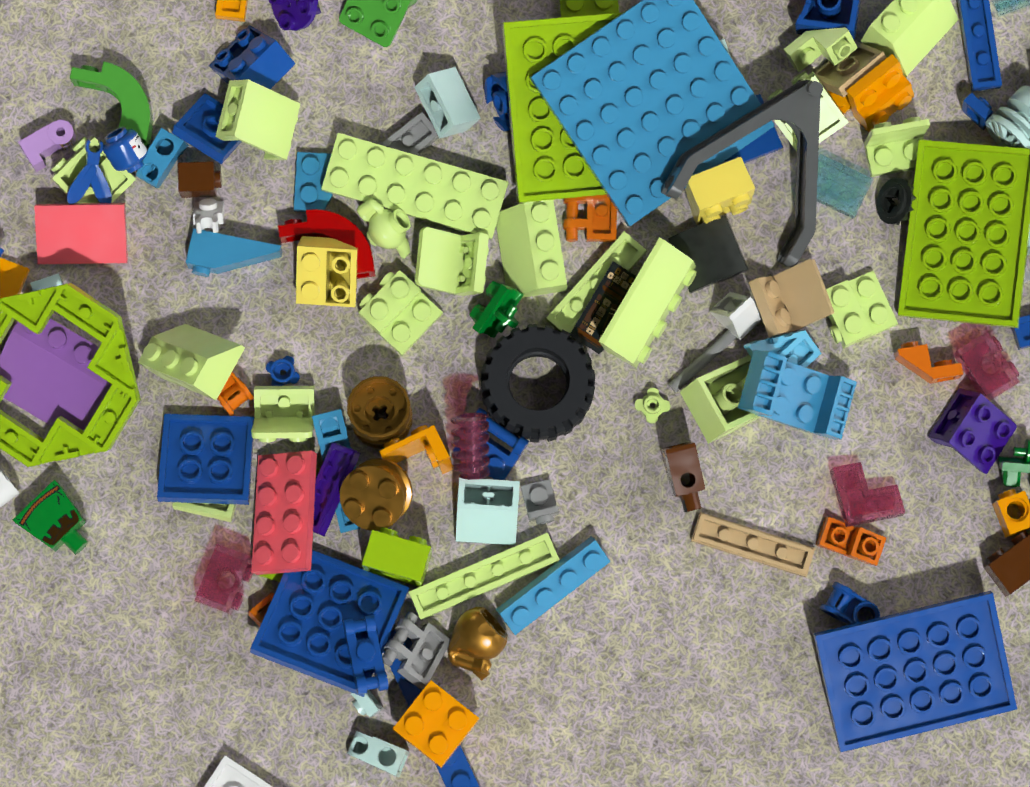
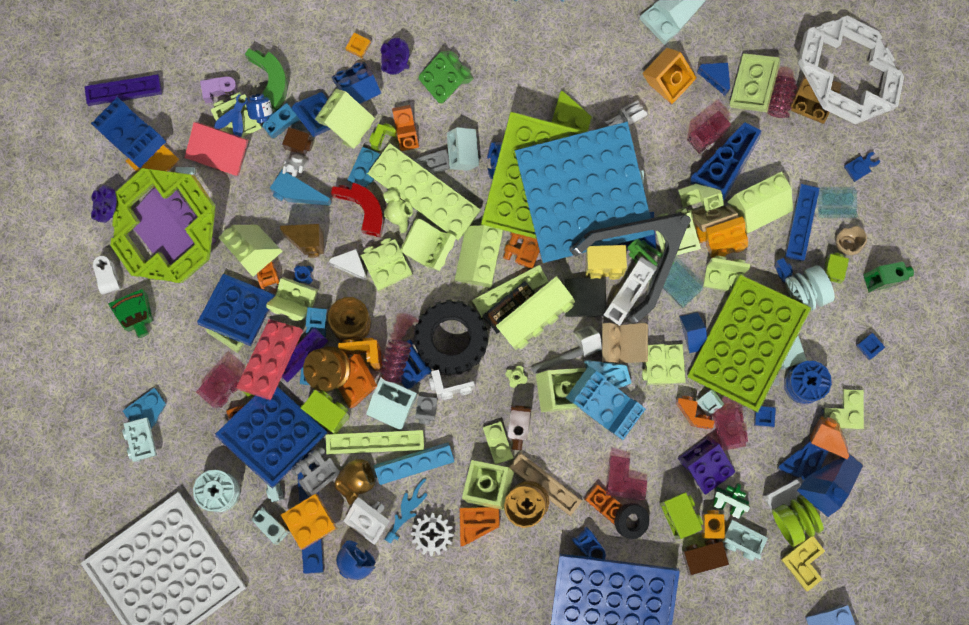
camera: 25 degrees right, 0 degrees up
(129, 659) = (147, 406): none -> dark azure wing
(138, 700) = (139, 440): none -> light aqua bracket
(267, 317) = (306, 238): none -> pearl gold slope
(296, 742) = (228, 491): none -> light aqua wheel
(314, 131) = (377, 137): none -> lime bracket
(326, 272) = (349, 224): light yellow slope -> none
(346, 330) = (349, 263): none -> white slope
(349, 101) = (405, 128): none -> orange slope
(365, 654) = (282, 463): blue plate -> none
(430, 499) = (359, 383): none -> orange plate
(499, 310) = (445, 285): green hips -> none
(517, 691) = (367, 520): none -> white tile
(522, 759) = (353, 562): none -> blue cylinder
(543, 457) = (447, 393): none -> white bracket
(565, 654) = (406, 507): none -> dark azure piece
(623, 690) = (432, 543): none -> white gear
(662, 511) = (498, 443): none -> yellowish green plate
(673, 575) = (487, 484): none -> yellowish green brick
(677, 636) = (477, 523): none -> orange wing
(729, 595) = (519, 512): none -> pearl gold wheel
(760, 153) = (638, 248): none -> bright green plant
(770, 220) = (630, 291): none -> white arch
(881, 549) = (621, 517): none -> black tyre
(883, 246) = (694, 331): none -> blue slope
(887, 208) = (705, 310): pearl dark grey gear -> none
(945, 339) = (710, 402): none -> light aqua plate
(965, 515) = (681, 515): none -> lime brick

